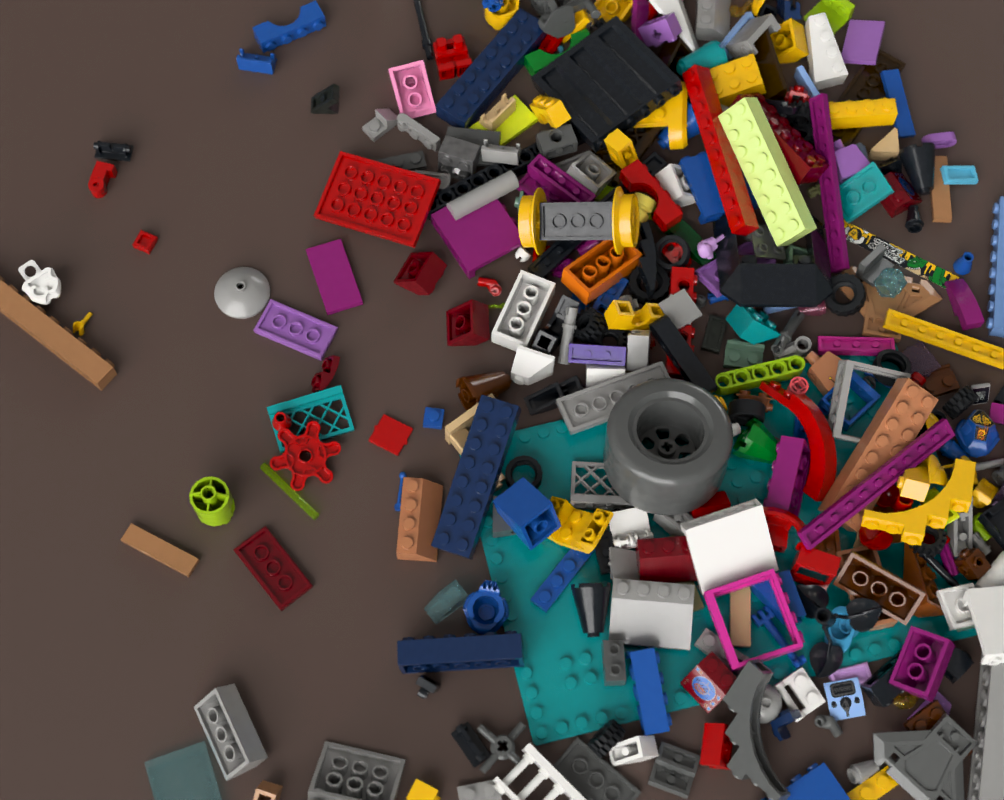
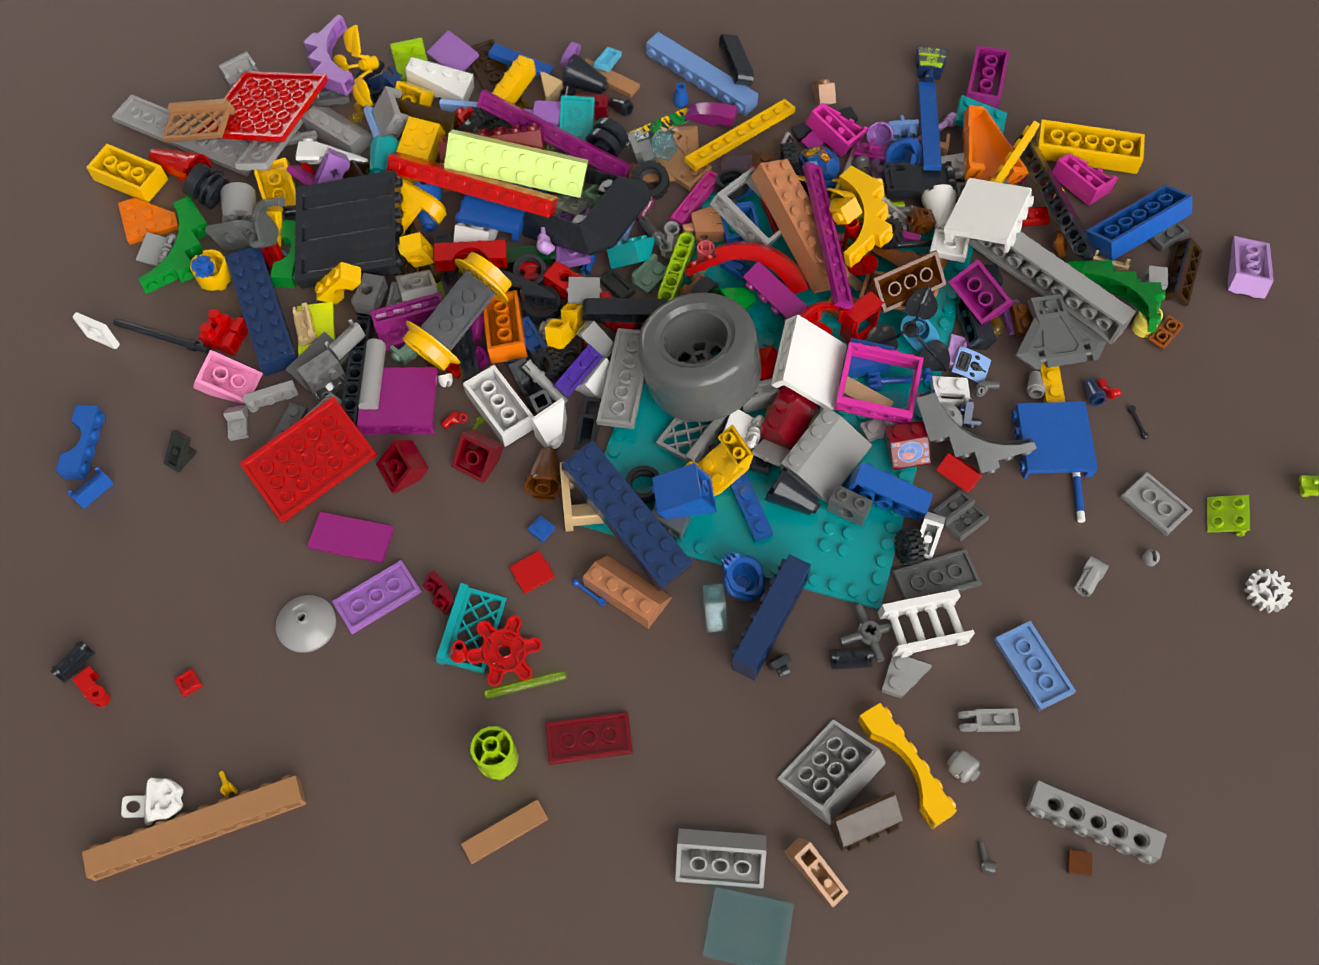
camera: 55 degrees left, 5 degrees down
(860, 229) = (608, 136): none -> black wheel

